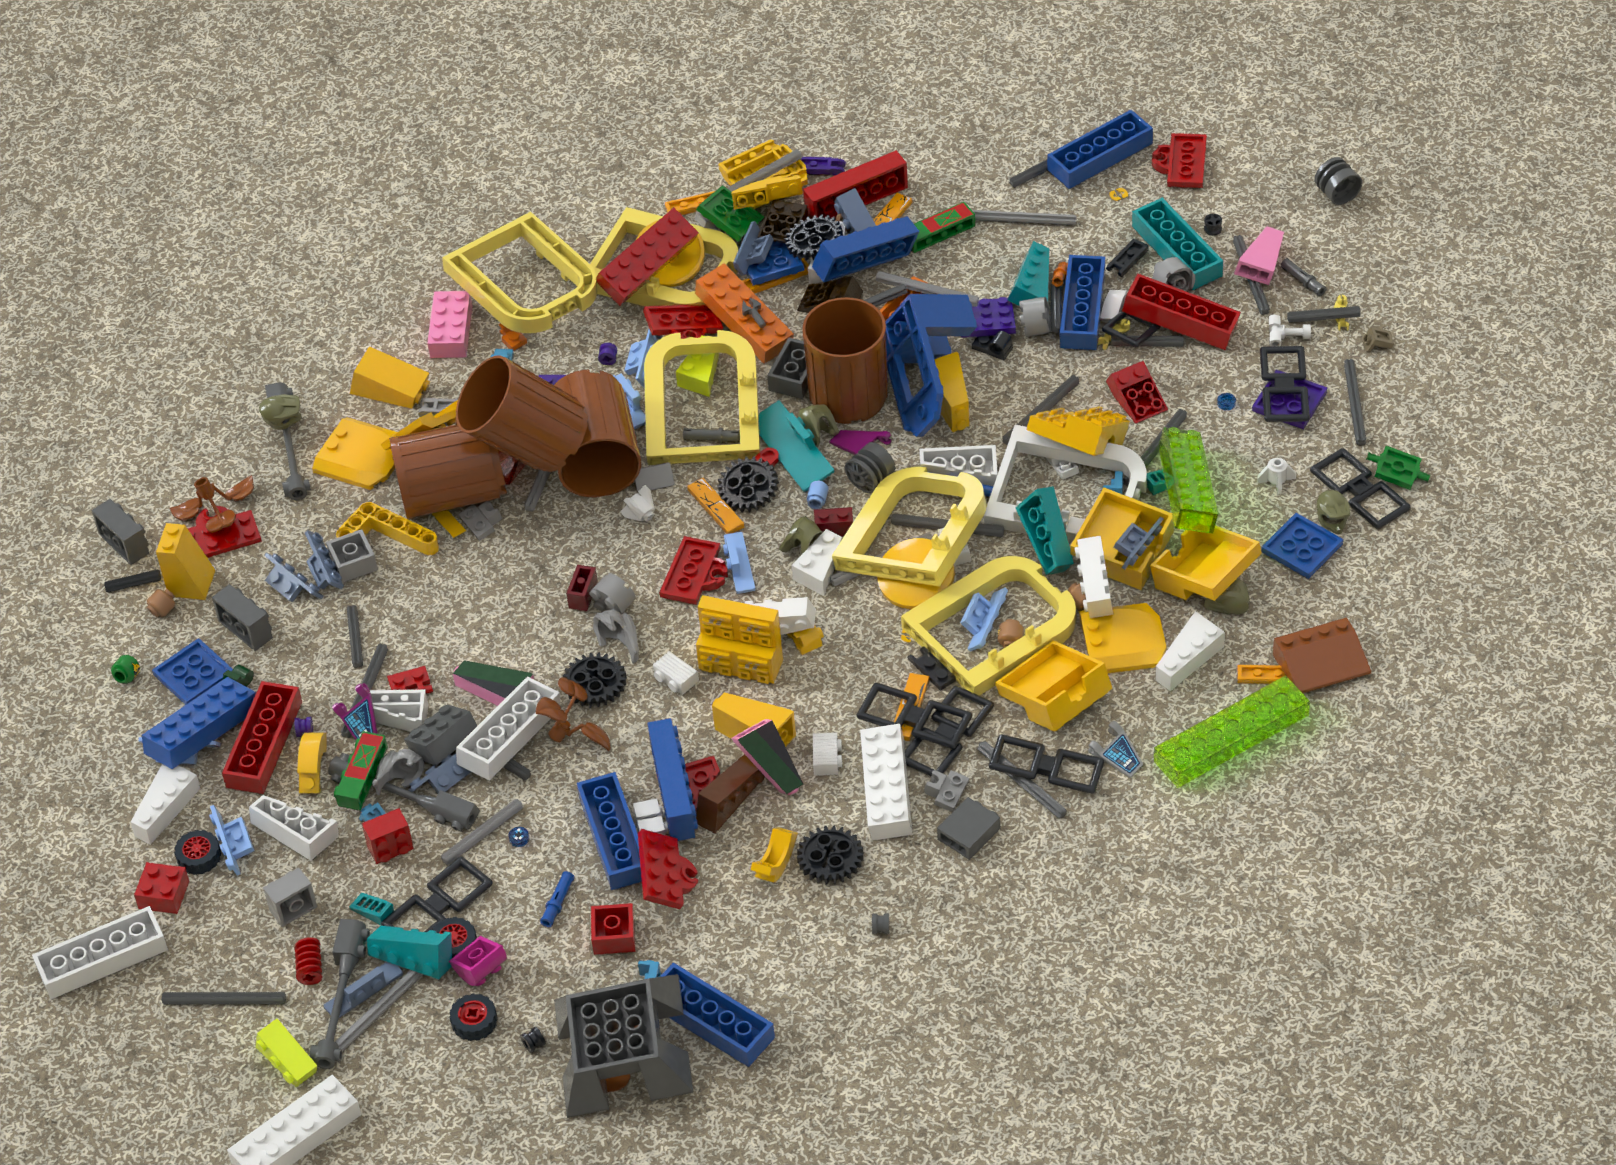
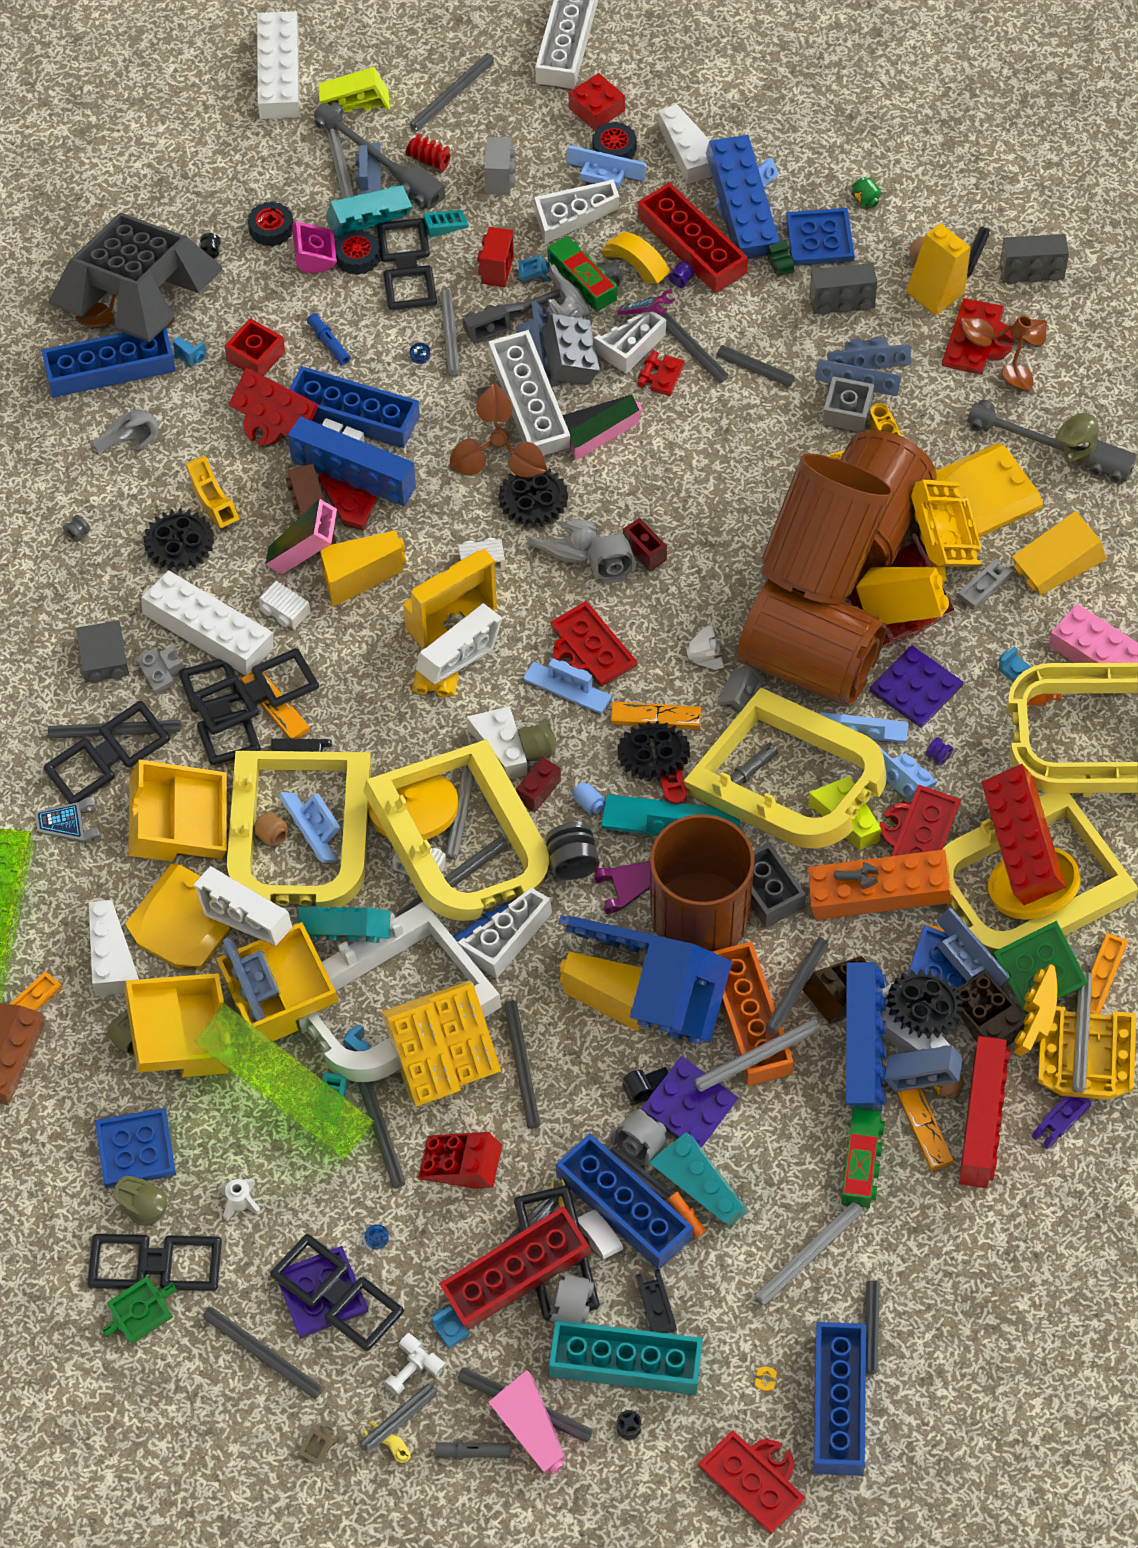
camera: 125 degrees right, 10 degrees up
(752, 958) = (131, 425): none -> light grey hair
(1244, 333) = (449, 1326): none -> dark azure bracket

